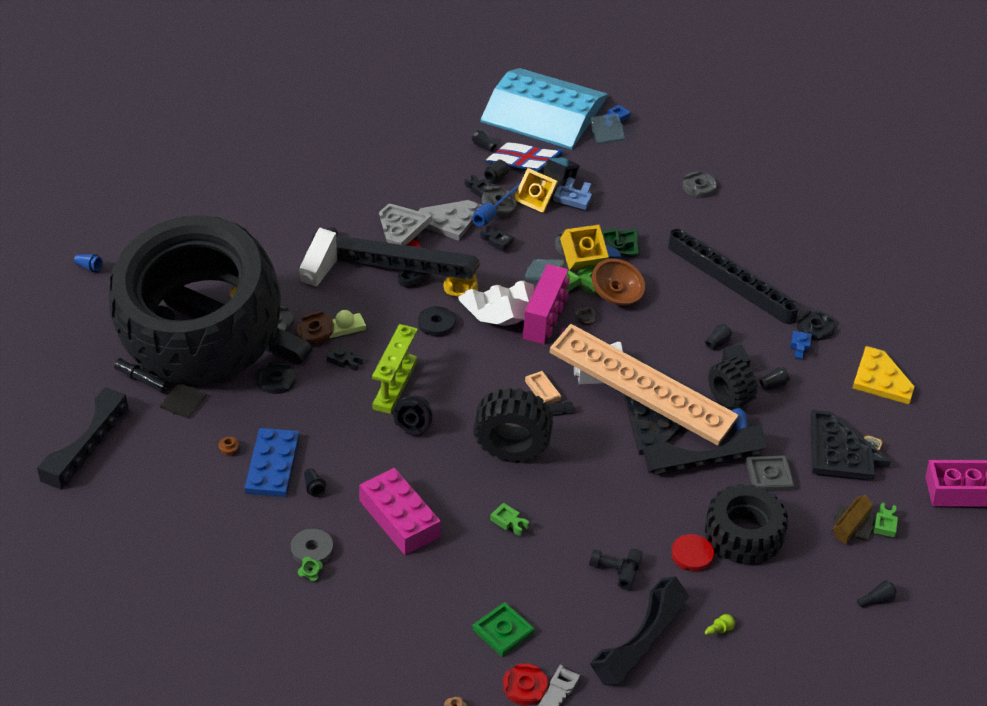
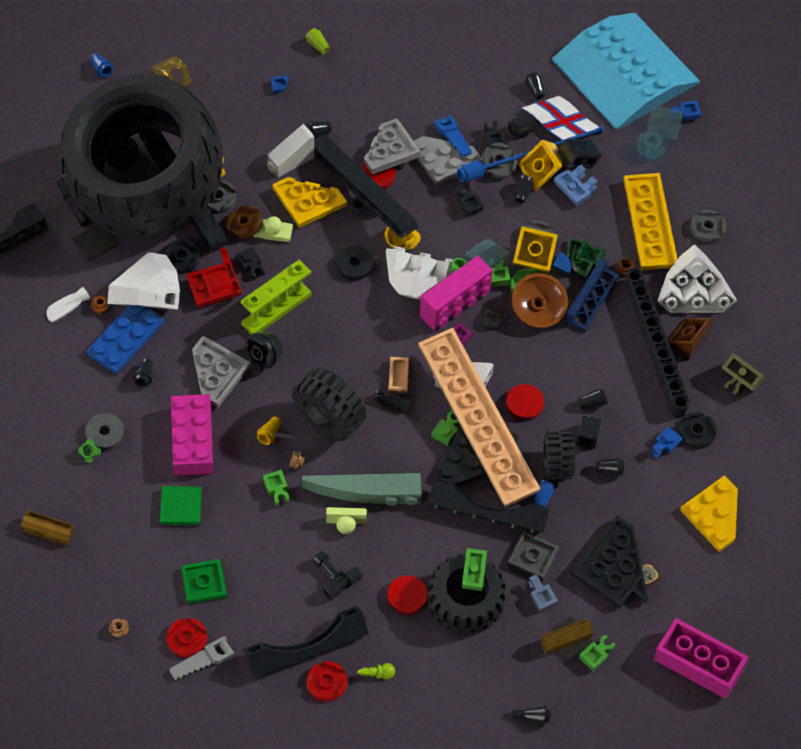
camera: 30 degrees right, 15 degrees up
(196, 459) = (66, 305): none -> white piece
(263, 218) = (279, 84): none -> blue tile
(266, 407) = (147, 283): none -> white brick
(274, 175) = (317, 40): none -> lime cone
(319, 653) = (47, 527): none -> pearl gold piece
(324, 384) = (214, 283): none -> red piece
(358, 291) = (308, 200): none -> yellow plate
(378, 449) = (217, 369): none -> light grey plate
(432, 575) = (180, 505): none -> green tile
(440, 195) = (453, 135): none -> blue piece
(466, 479) = (268, 432): none -> yellow cone
(509, 490) = (296, 460): none -> medium nougat plate
(532, 281) = (457, 263): none -> bright green plate
(533, 211) = (523, 187): none -> black cone
(590, 483) = (368, 488): none -> sand green slope
(591, 515) = (346, 518): none -> yellowish green tile
(610, 146) = (652, 145): none -> clear light blue gear
(617, 411) = (446, 430): none -> bright green plate
(649, 268) = (587, 291): none -> dark blue fence
(653, 197) = (650, 221): none -> yellow plate
(661, 234) = (624, 262): none -> reddish brown plate
(665, 361) = (525, 402): none -> red tile
(681, 657) = (327, 681): none -> red tile
(727, 225) = (695, 286): none -> white brick
(746, 493) = (474, 569): none -> bright green plate
(755, 258) = (690, 335): none -> reddish brown slope
(804, 498) = (541, 595): none -> sand blue plate
(818, 267) = (743, 373): none -> olive brick

